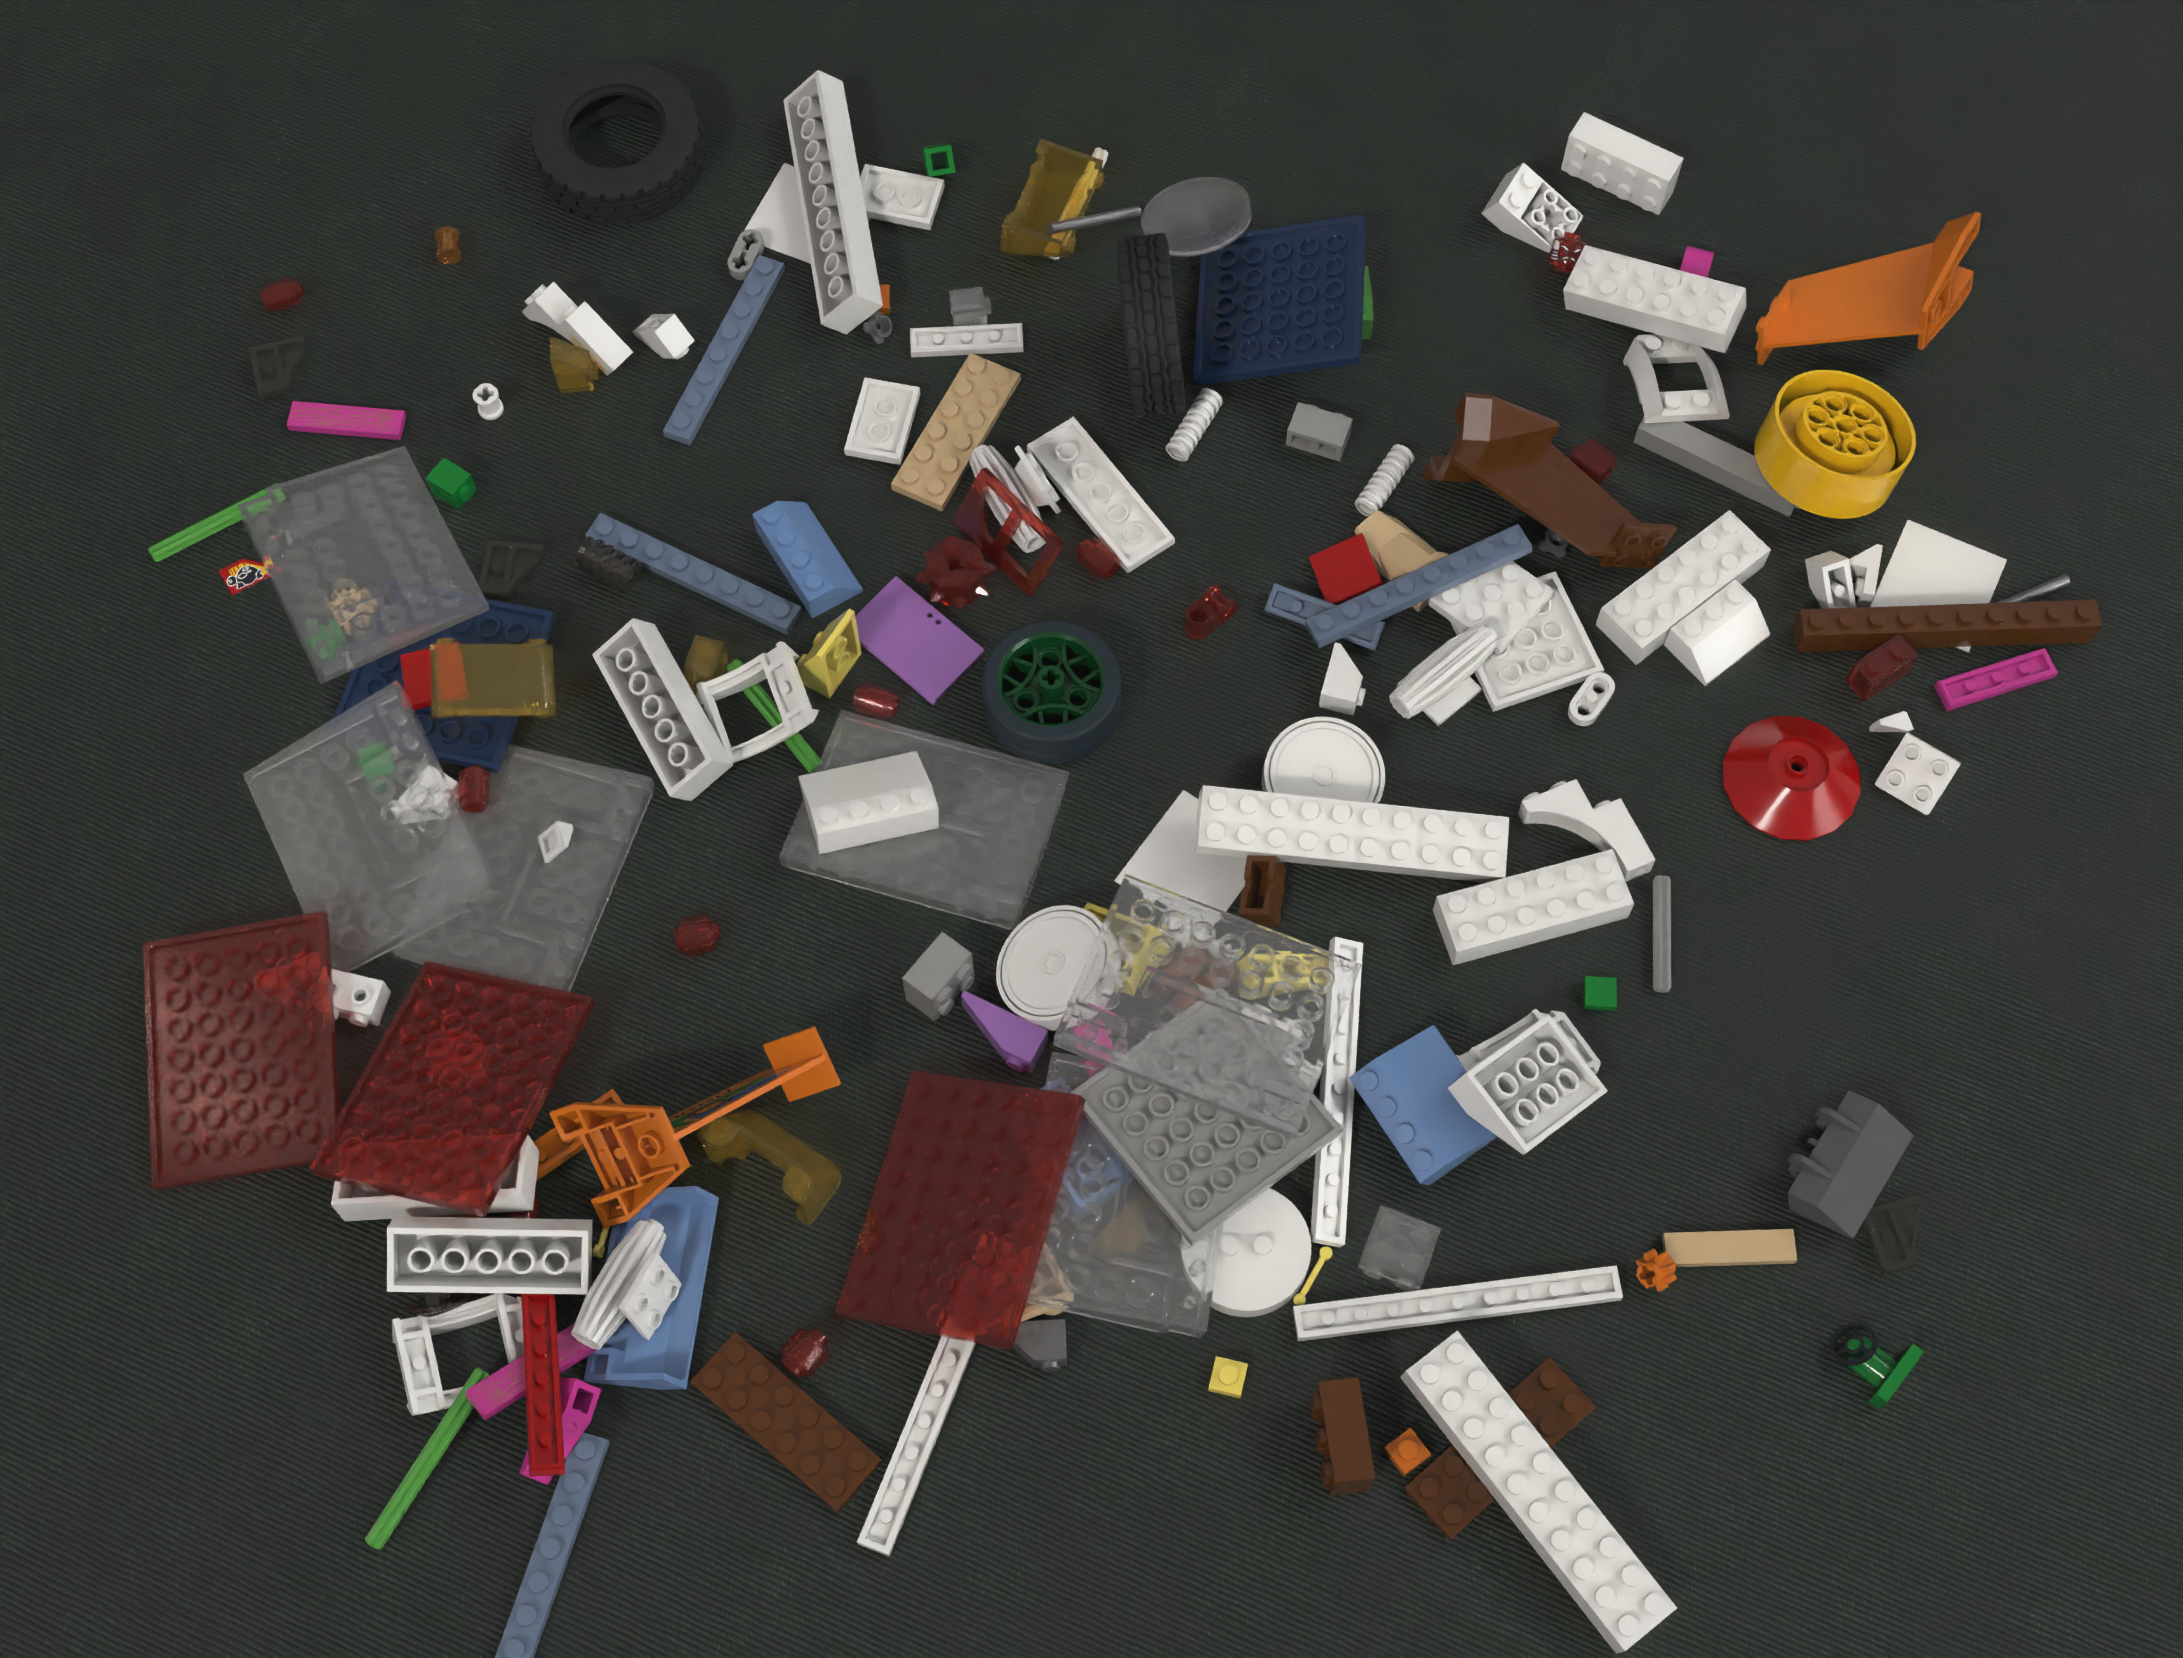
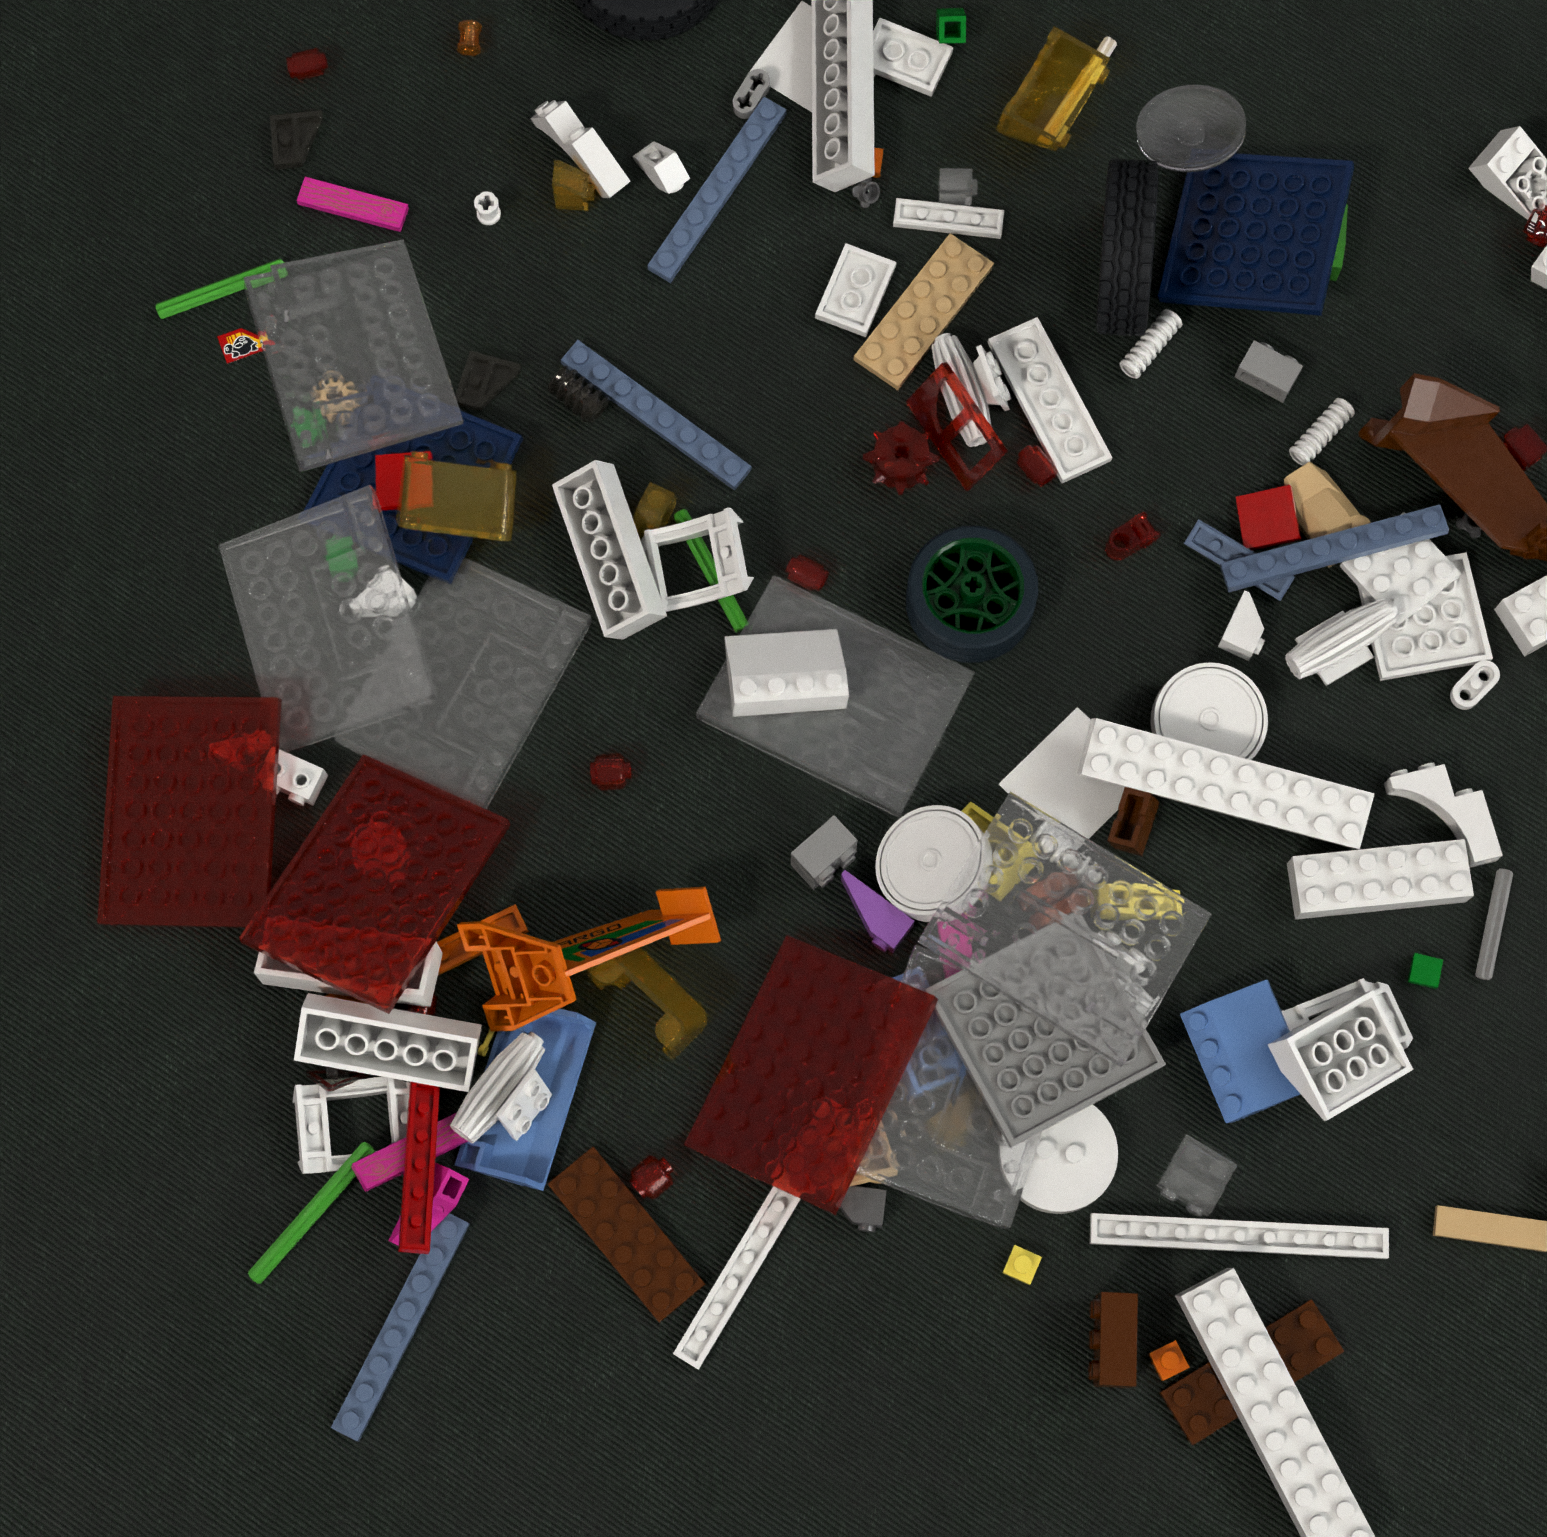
camera: 10 degrees right, 10 degrees up
(451, 483) = (443, 287): green brick -> none
(474, 789) = (427, 597): clear red brick -> none
(555, 840) = (494, 661): white slope -> none
(806, 555) = (764, 415): medium blue slope -> none
(831, 655) = (771, 522): light yellow slope -> none
(918, 648) = (854, 526): medium lavender container -> none
(1093, 220) = (1089, 116): flat silver bar -> none
(1325, 1254) = (1128, 1168): light yellow hinge -> none
(1337, 1096) = (1165, 1033): white plate -> none
(1656, 1270) = (1423, 1239): orange gear -> none

